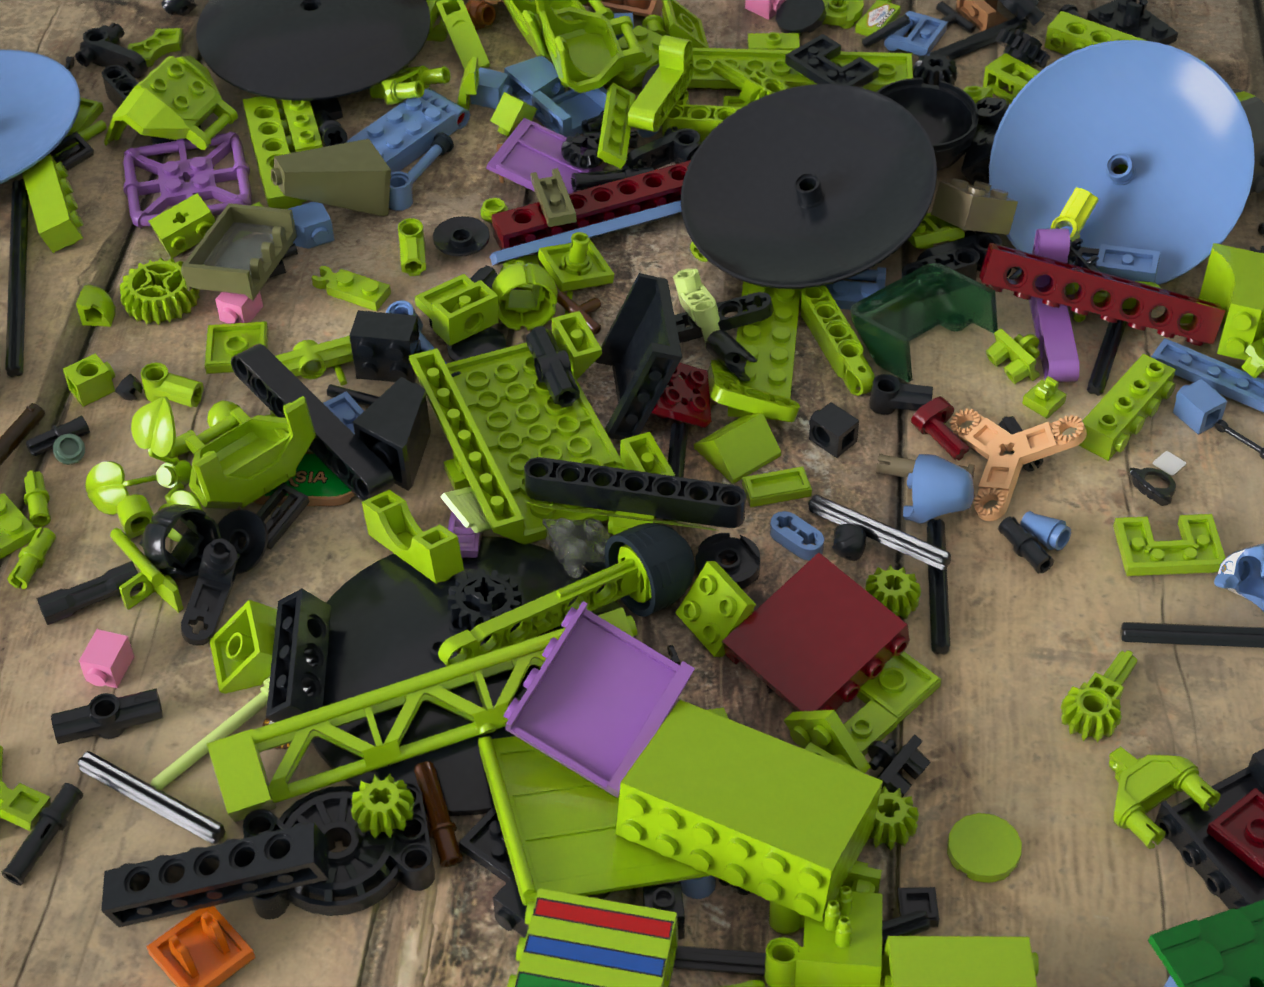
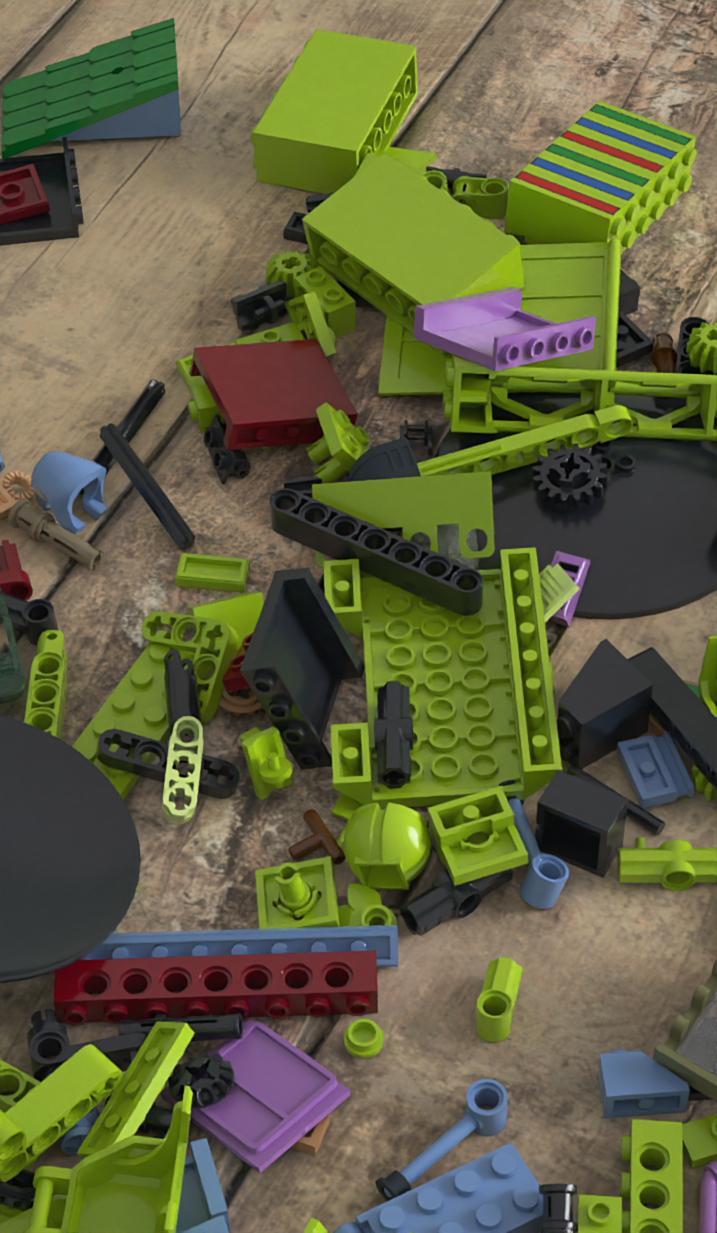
camera: 160 degrees left, 0 degrees up
(337, 175) = (579, 1102): olive slope -> none
(352, 287) = (594, 973): lime plate -> none
(431, 552) = (610, 557): lime arch -> none
(461, 236) = (431, 982): black dish -> none
(510, 113) = (268, 1189): lime brick -> none
(554, 199) = (288, 967): olive hinge -> none
(795, 536) = (217, 519): medium blue beam -> none
(833, 429) = (120, 600): black brick -> none
(849, 541) = (180, 487): black piece -> none
(895, 590) = (171, 432): lime gear -> none
(984, 847) = (226, 247): lime tile -> none
(1026, 545) = (15, 442): black pin -> none
(1096, 705) = (57, 307): lime gear -> none
(1150, 782) = (69, 242): lime connector -> none

